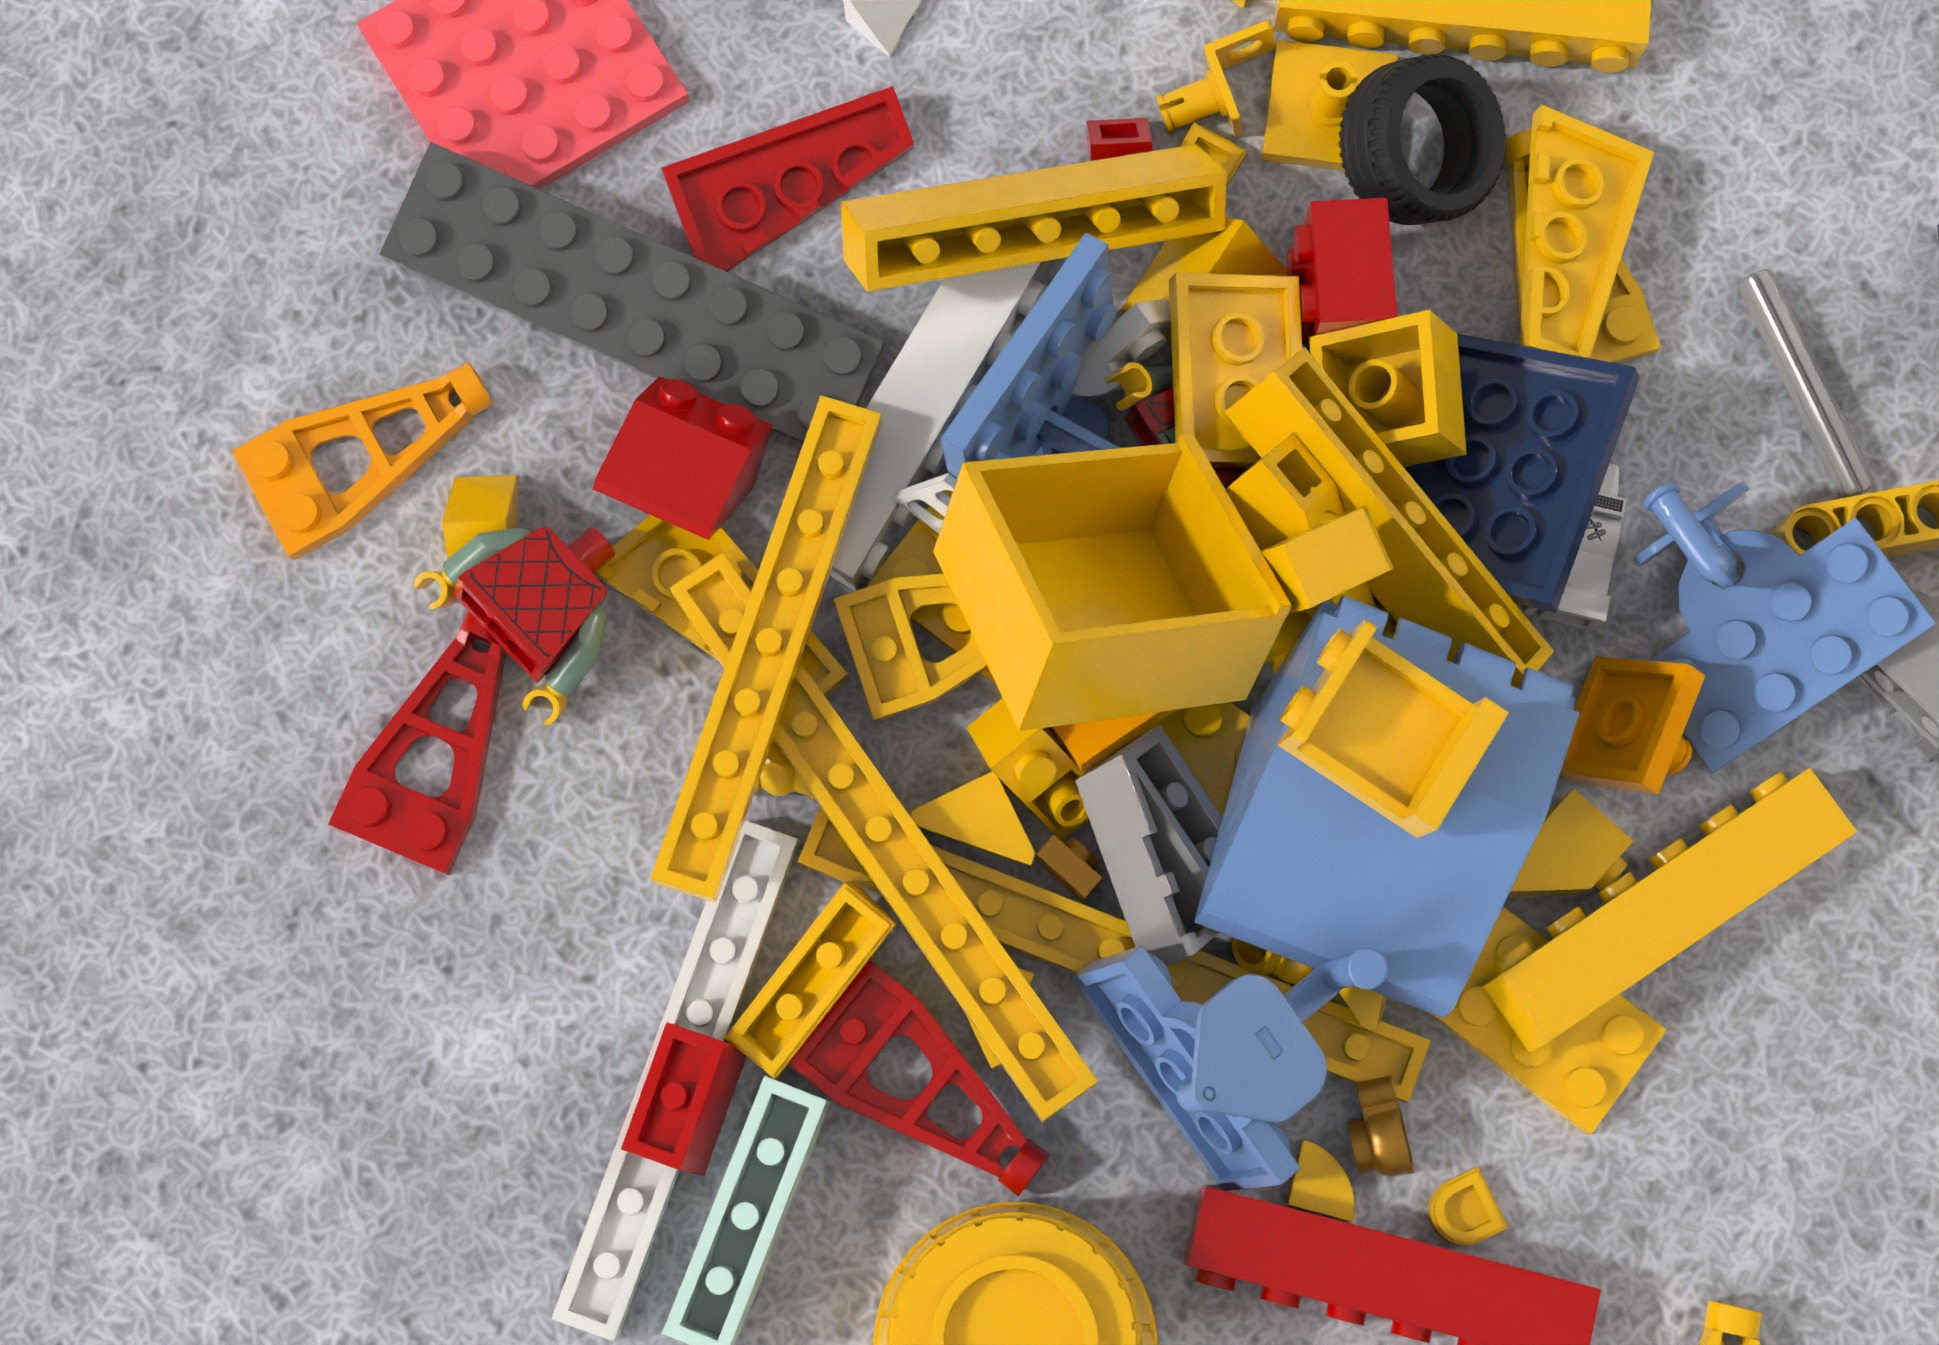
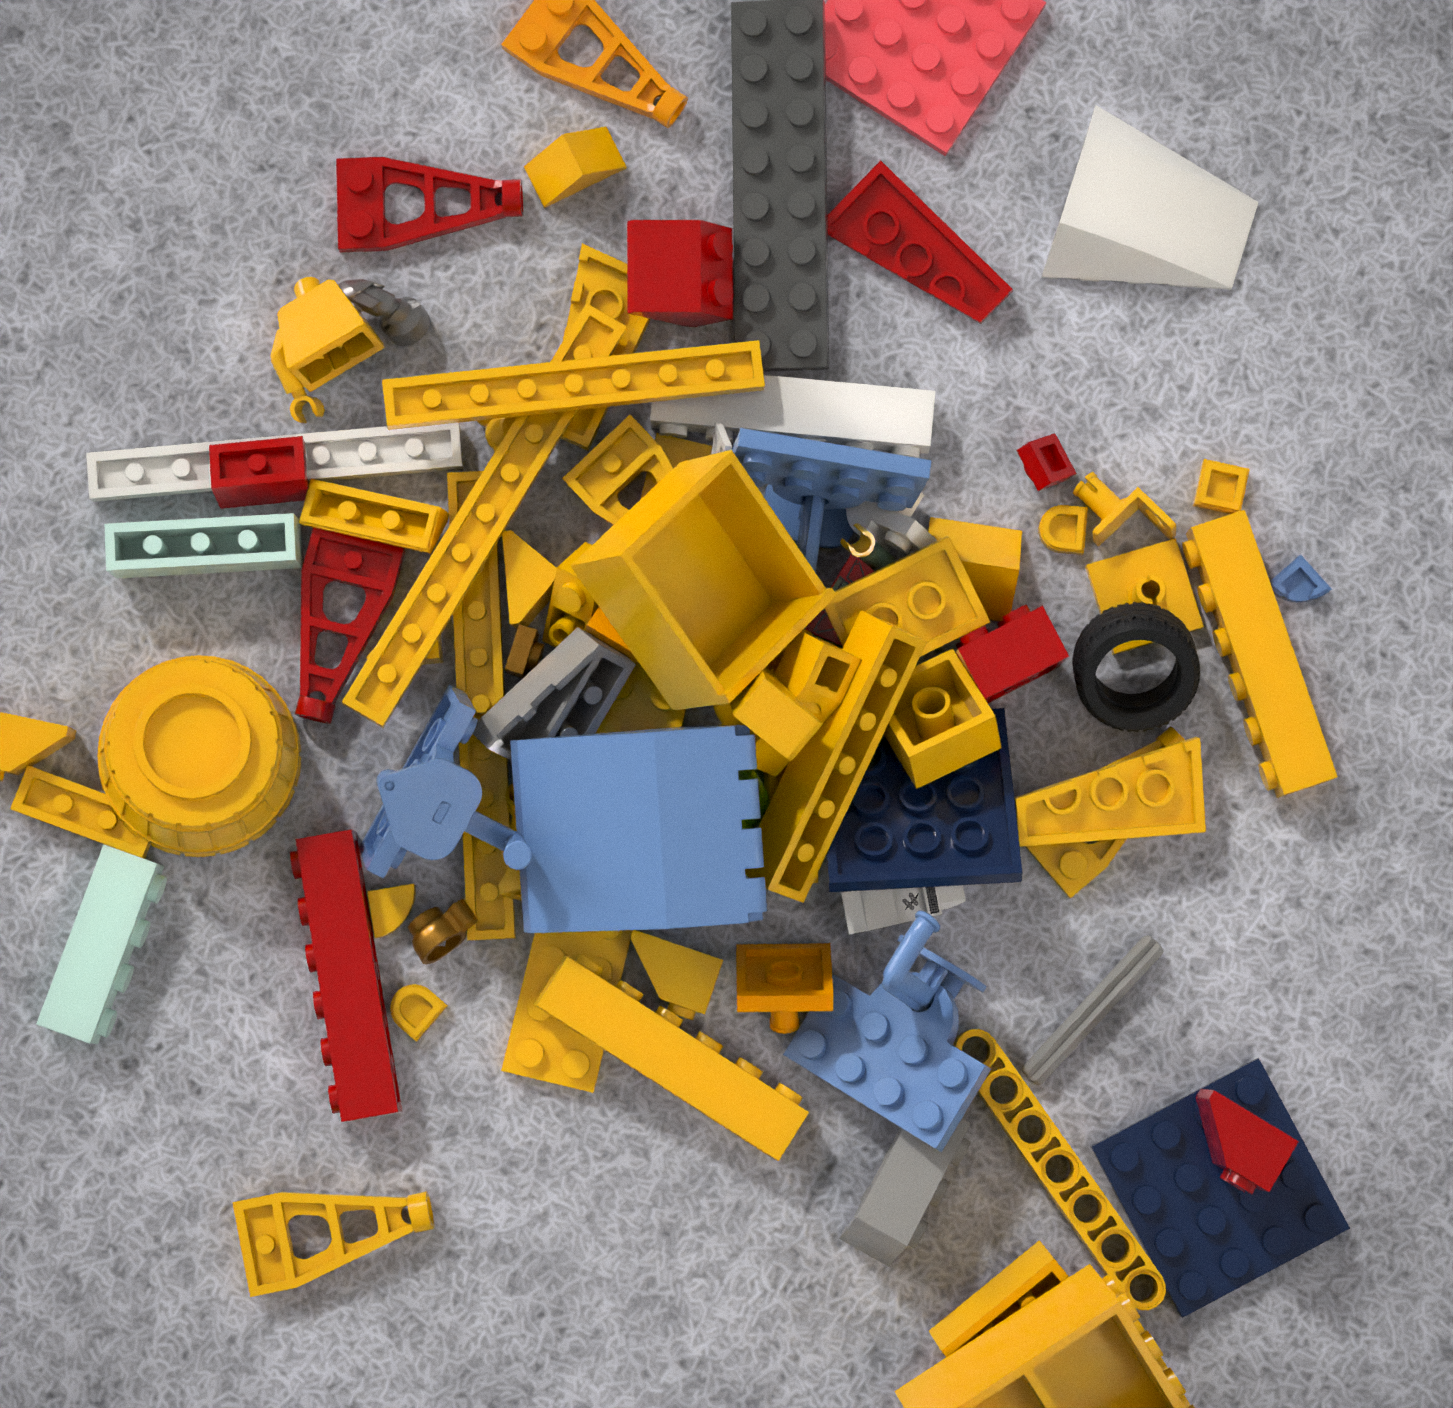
camera: 65 degrees right, 5 degrees up
(533, 601) = (538, 219): red torso -> none
(551, 929) = (327, 334): none -> yellow torso
(1031, 216) = (950, 425): yellow brick -> none
(1388, 731) = (673, 797): yellow panel -> none

